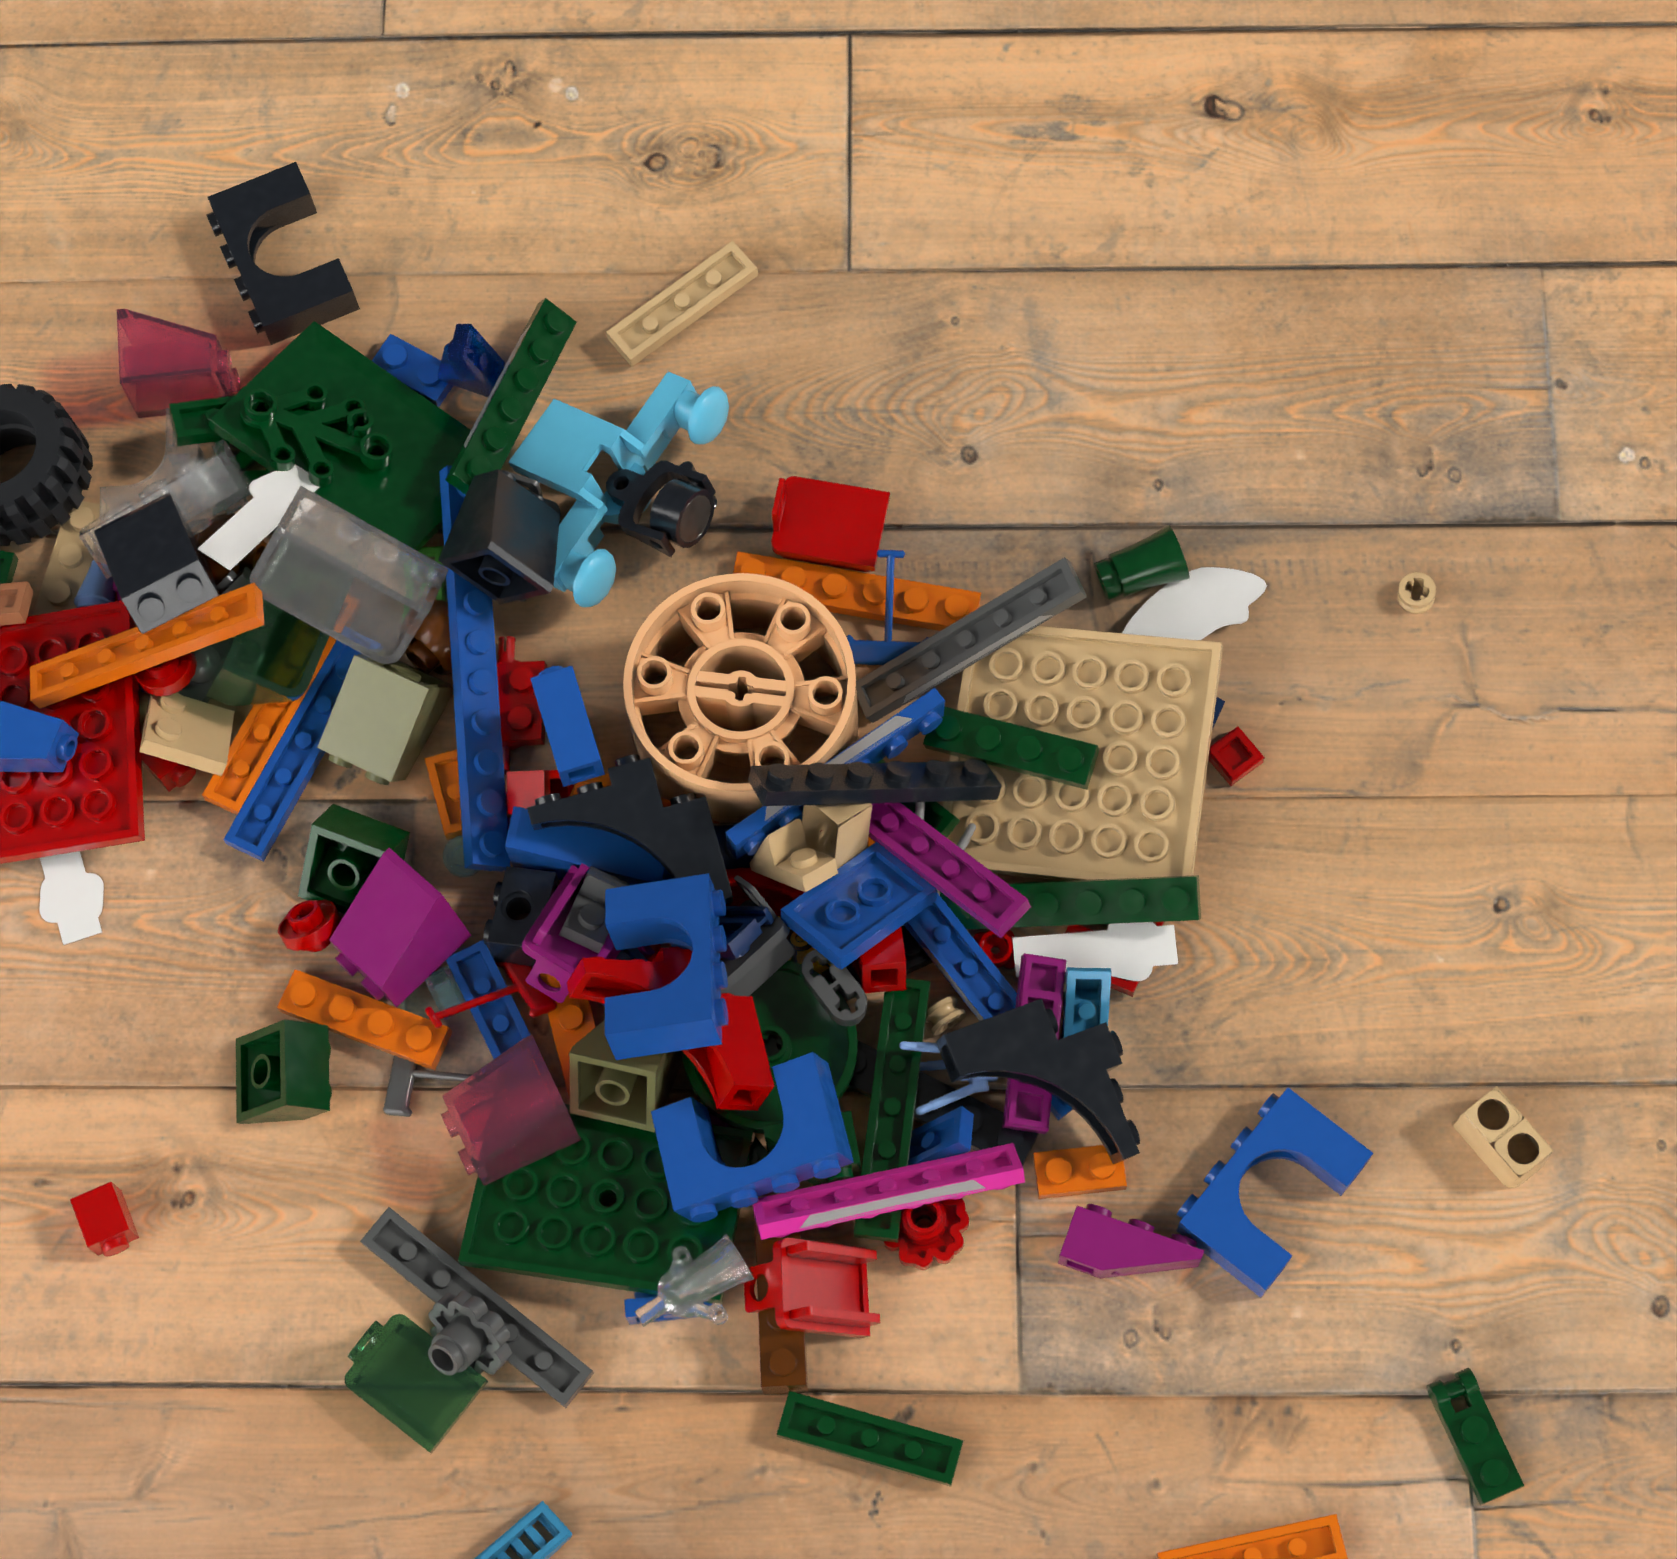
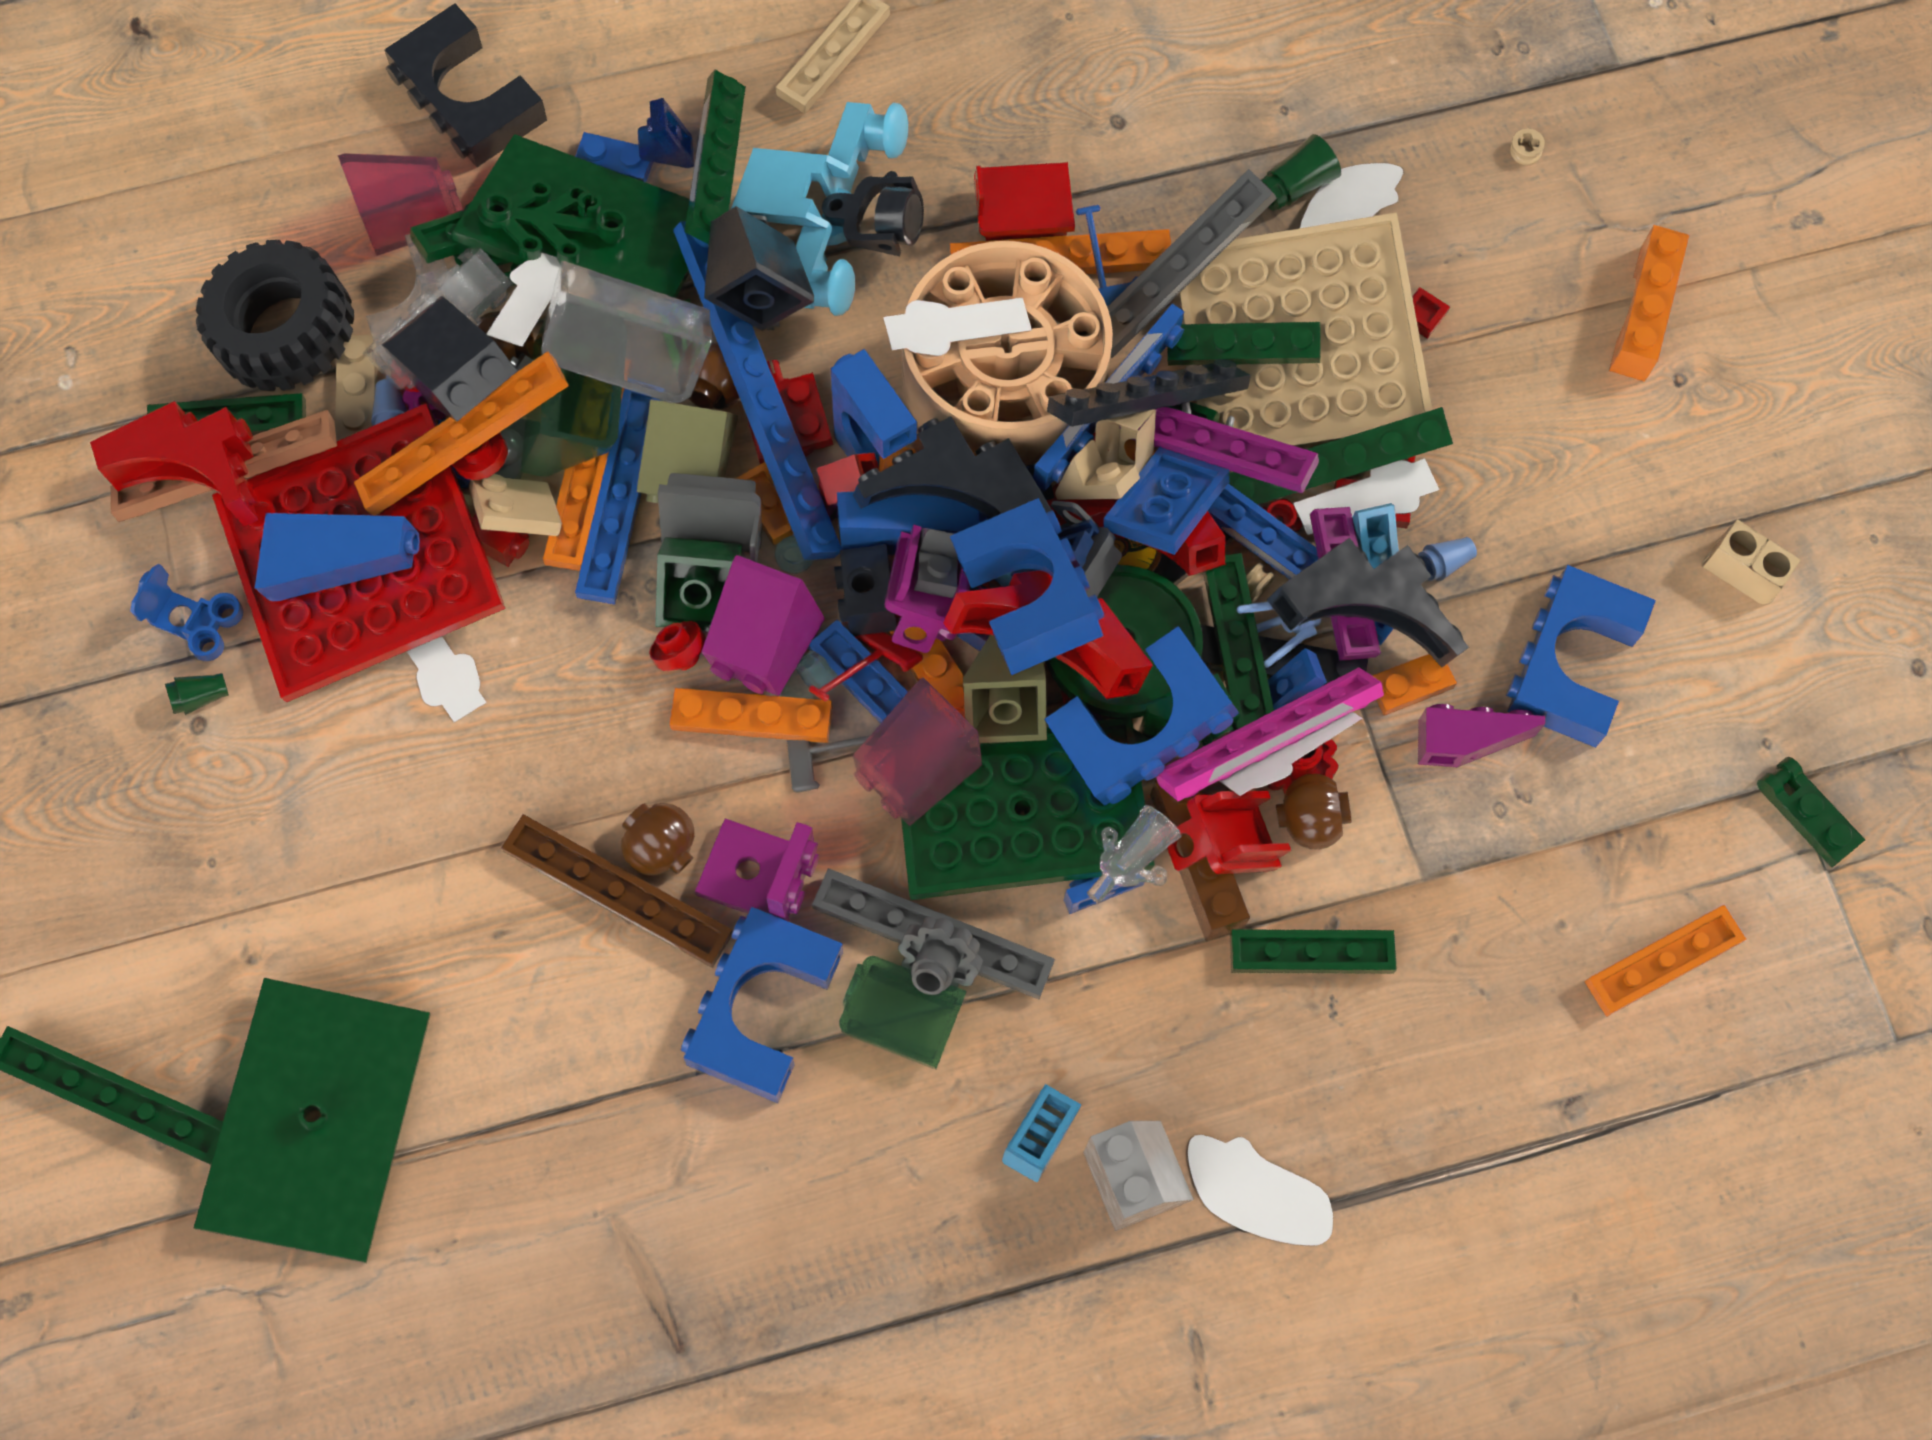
camera: 25 degrees left, 0 degrees up
(105, 1220) = (573, 948): red brick -> none
(169, 1171) = (617, 890): none -> reddish brown plate
(219, 1358) = (761, 946): none -> blue arch
(226, 1127) = (658, 839): none -> reddish brown plant
(283, 1073) = (695, 774): dark green slope -> none
(337, 1207) = (781, 872): none -> magenta bracket
(386, 790) = (711, 510): none -> dark grey piece
(663, 651) = (932, 326): none -> white sticker
(826, 993) = (1165, 576): dark grey beam -> none
(883, 1227) = (1278, 764): none -> white sticker
(921, 1286) = (1314, 811): none -> reddish brown plant
(1160, 1042) = (1447, 557): none -> medium blue cone
(1489, 809) = (1651, 304): none -> orange arch

